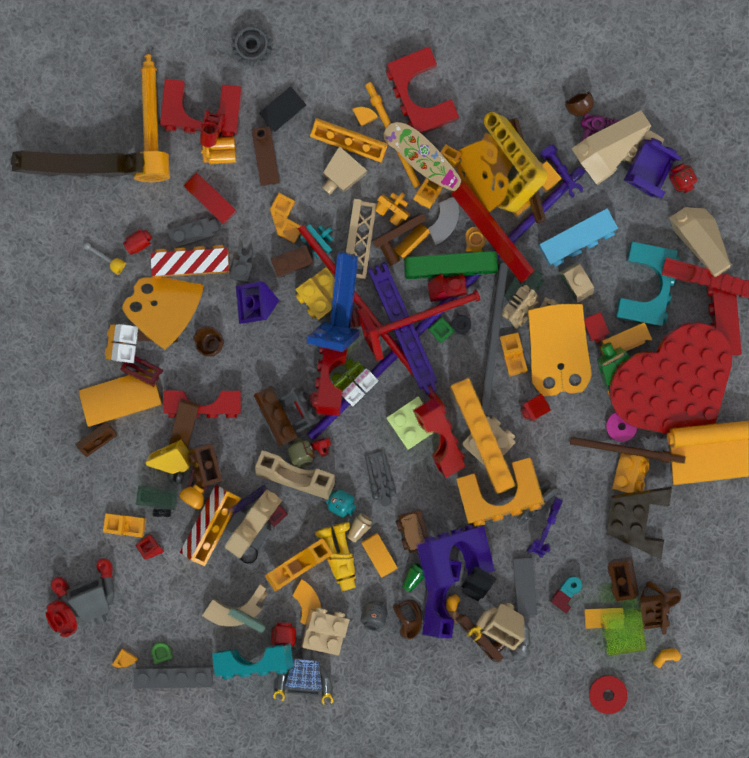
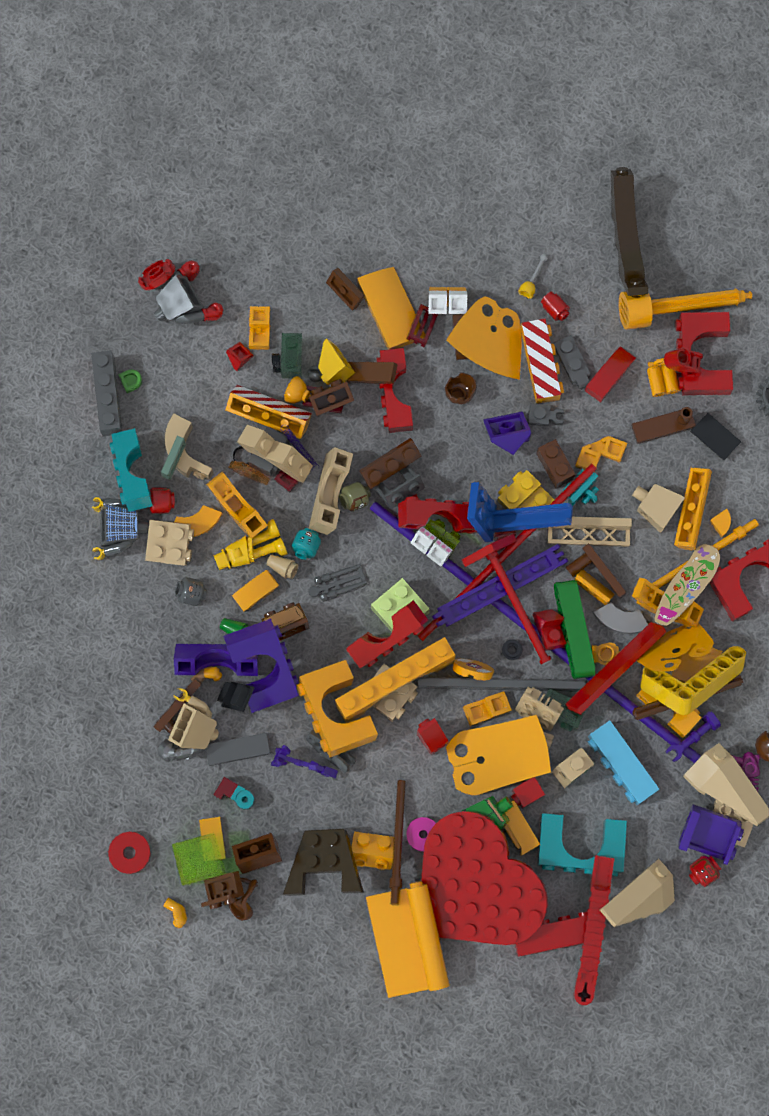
camera: 80 degrees right, 10 degrees down
(124, 659) = (120, 344): light orange tile -> none
(266, 549) = (249, 472): none -> clear orange tile
(322, 443) = (365, 513): red tile -> none
(386, 203) = (630, 554): light orange hips -> none
(409, 628) = (180, 630): reddish brown piece -> none
(441, 330) = (503, 629): green tile -> none
(477, 361) = (474, 668): none -> light orange tile

